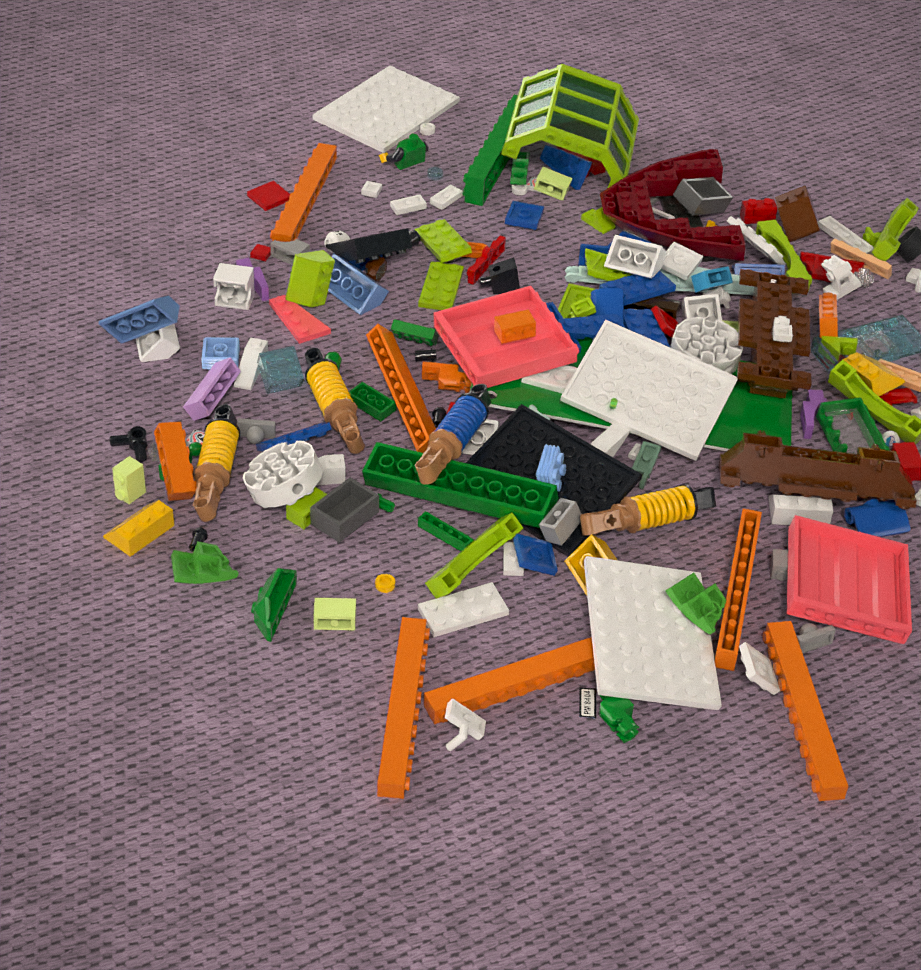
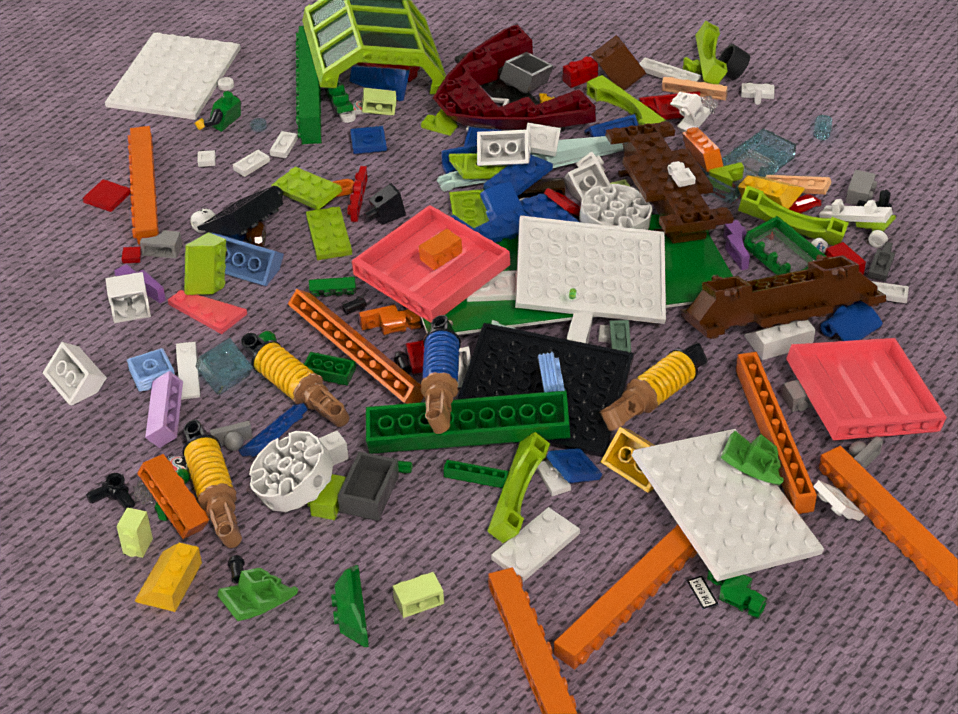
camera: 20 degrees left, 0 degrees up
(142, 319) = (57, 361): medium blue slope -> none
(385, 583) = (446, 545): yellow tile -> none
(466, 720) = (608, 654): white plate -> none
(560, 521) = (585, 424): light grey brick -> none
(582, 308) = (481, 213): lime bracket -> none
(711, 279) = (581, 147): dark azure brick -> none
(758, 241) = (601, 101): white plate -> none

